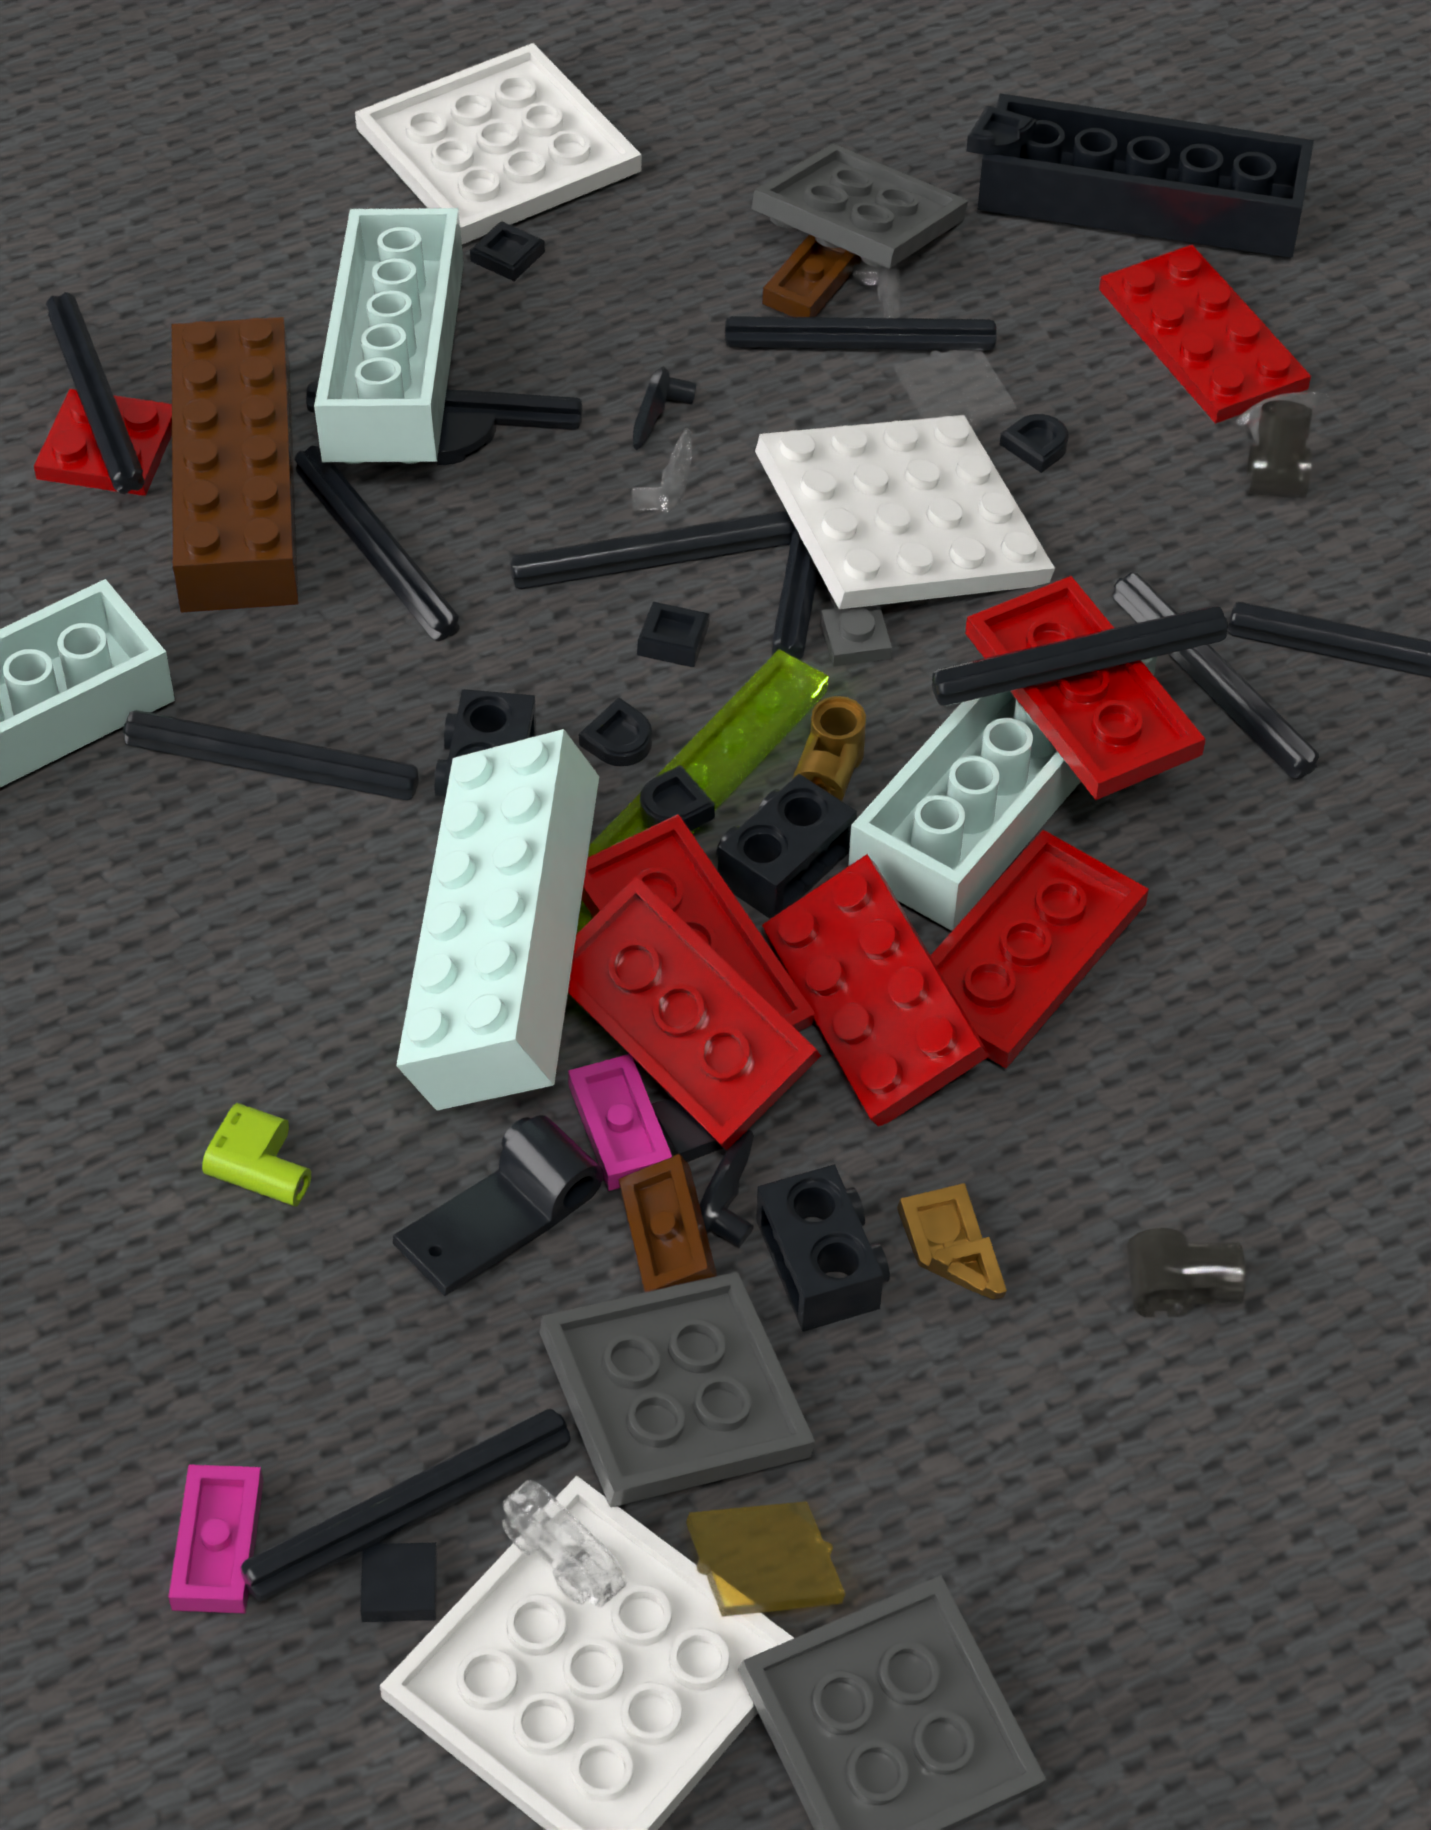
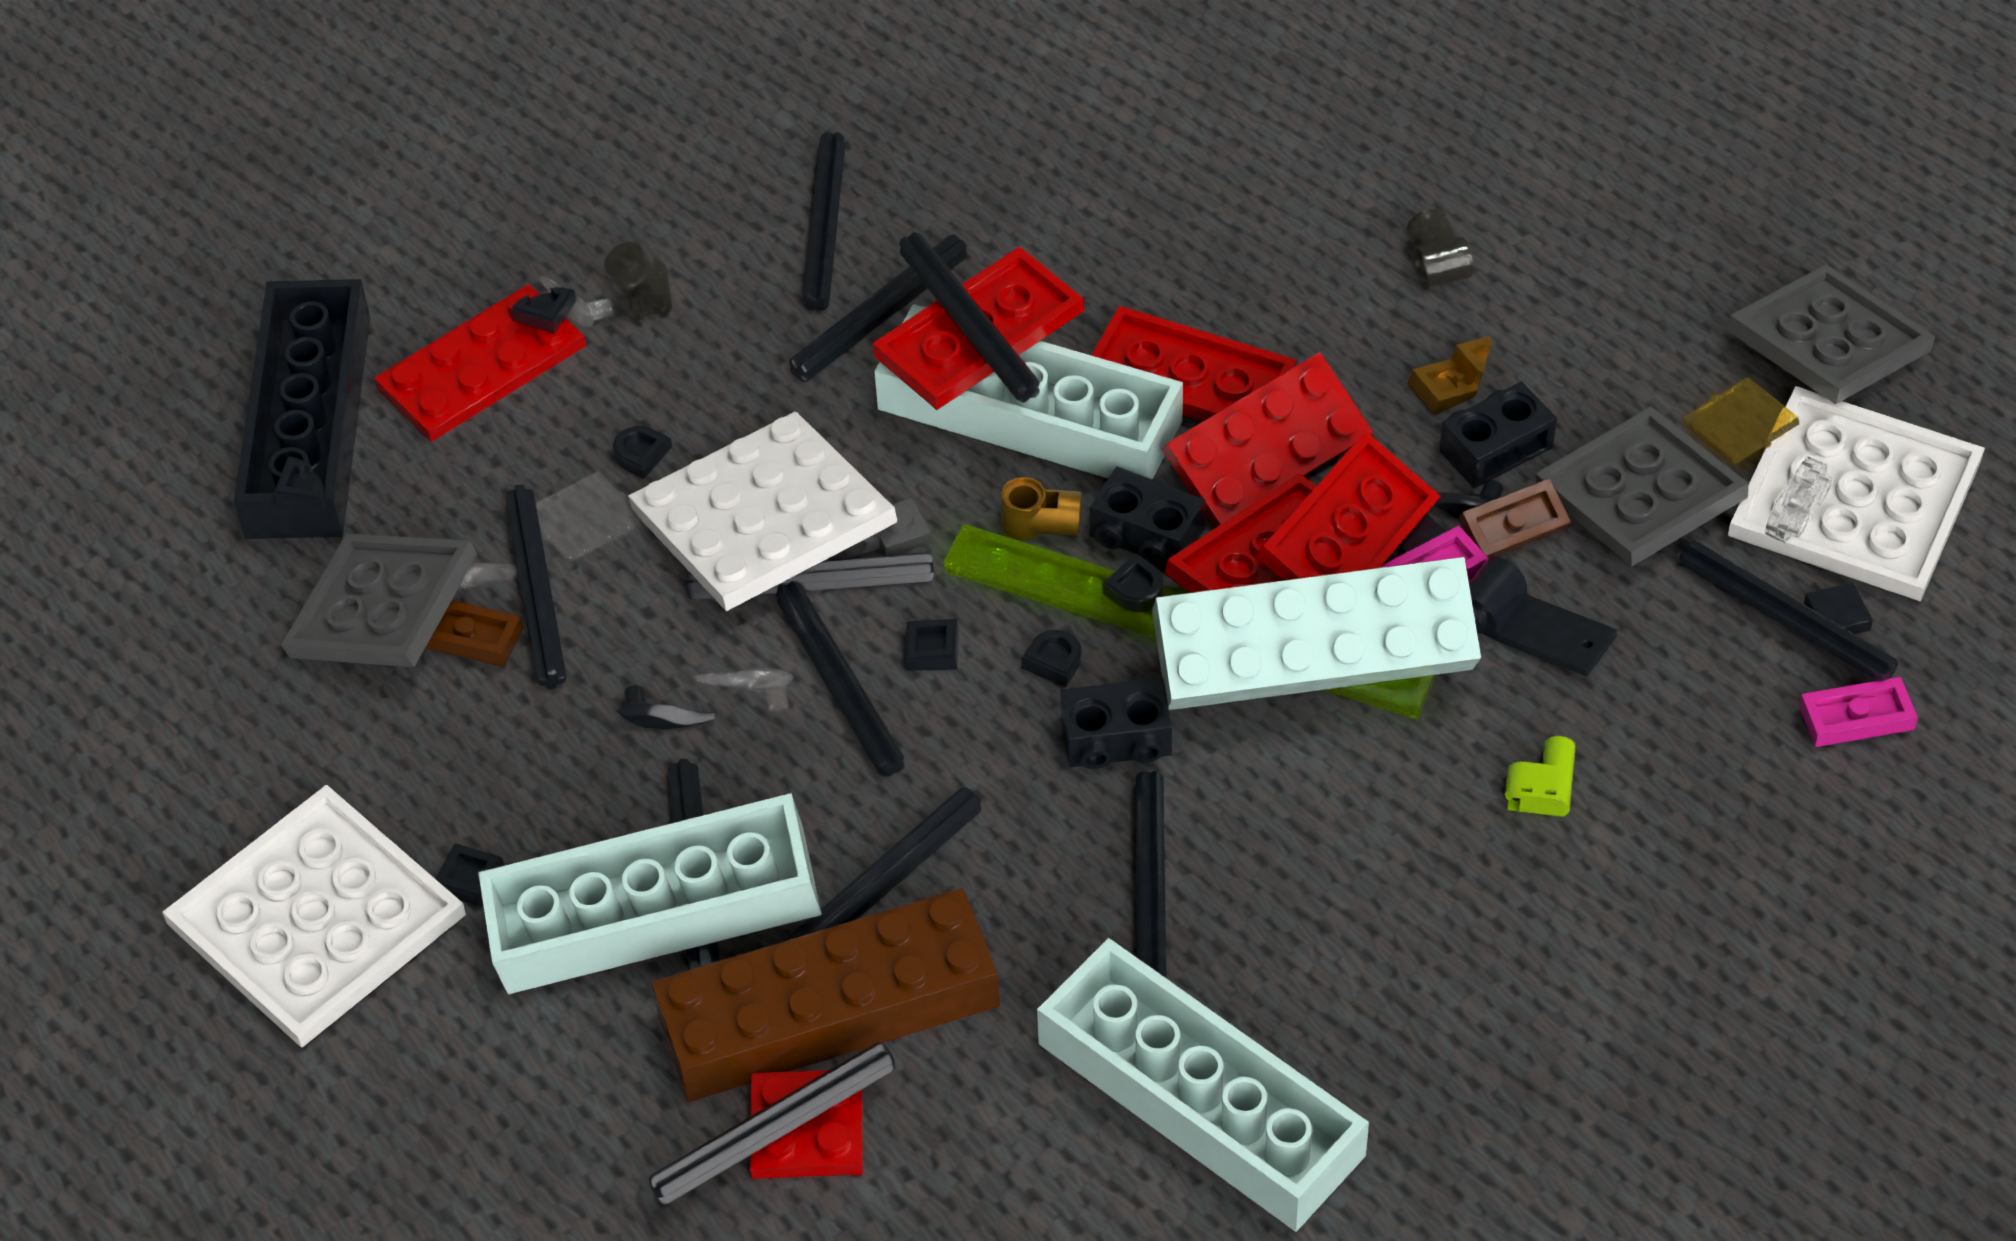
camera: 100 degrees left, 0 degrees up
(1249, 368) = (544, 310): none -> black tile

